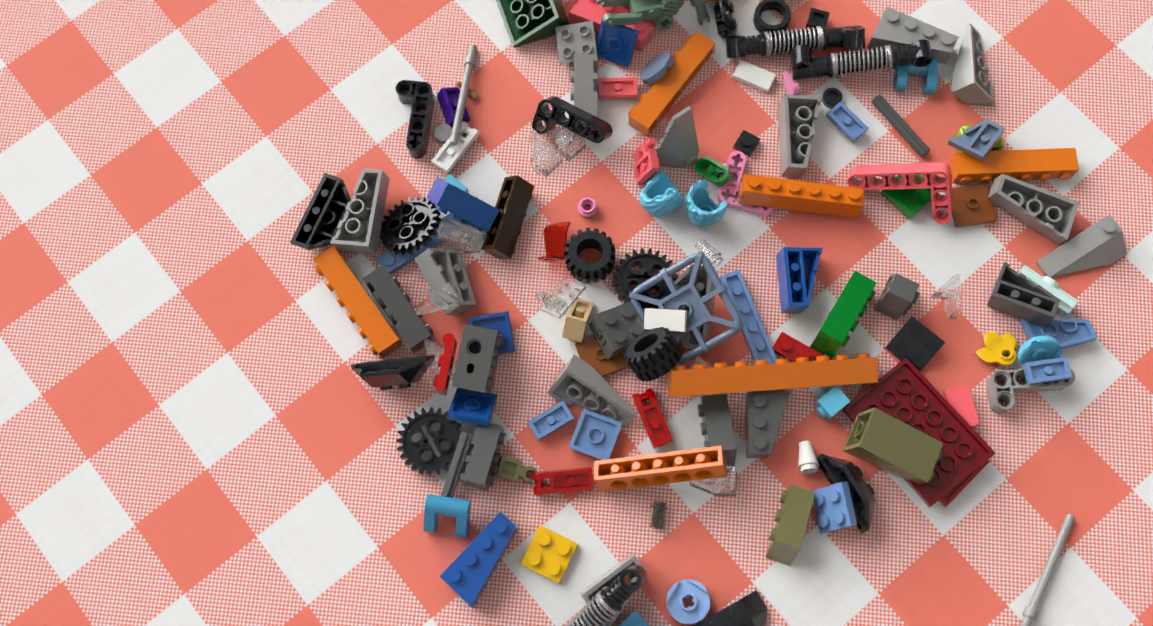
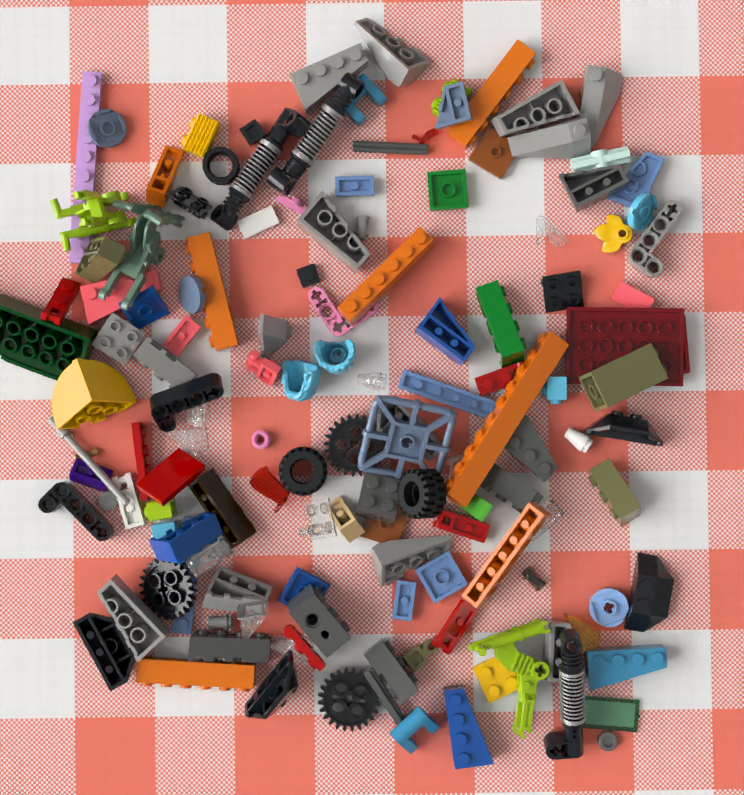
camera: 60 degrees left, 15 degrees up
(413, 289) = (220, 622): none -> light grey pin
(469, 171) = (155, 511): none -> lime brick
(472, 407) = (352, 653): blue plate -> none
(495, 131) = (141, 452): none -> red plate
(501, 157) = (170, 477): none -> red tile
(516, 54) = (89, 393): none -> yellow brick
(575, 556) = (519, 663): none -> lime piece
(647, 597) = (588, 635): none -> clear yellow slope
(672, 319) = (402, 461): white tile -> none
(679, 413) = (478, 507): none -> bright green slope
(714, 171) = (312, 323): green plate -> none
(820, 152) = (362, 227): none -> light grey pin
(831, 97) = (325, 178): black tile -> none
(834, 507) = (629, 454): medium blue plate -> none
(897, 296) = (518, 272): dark grey wedge -> none
(910, 181) = (440, 186): coral beam -> none
(935, 144) = (429, 134): none -> clear red piece
(1027, 241) = (559, 140): none -> light grey wedge
(1047, 370) = (660, 220): medium blue plate -> none

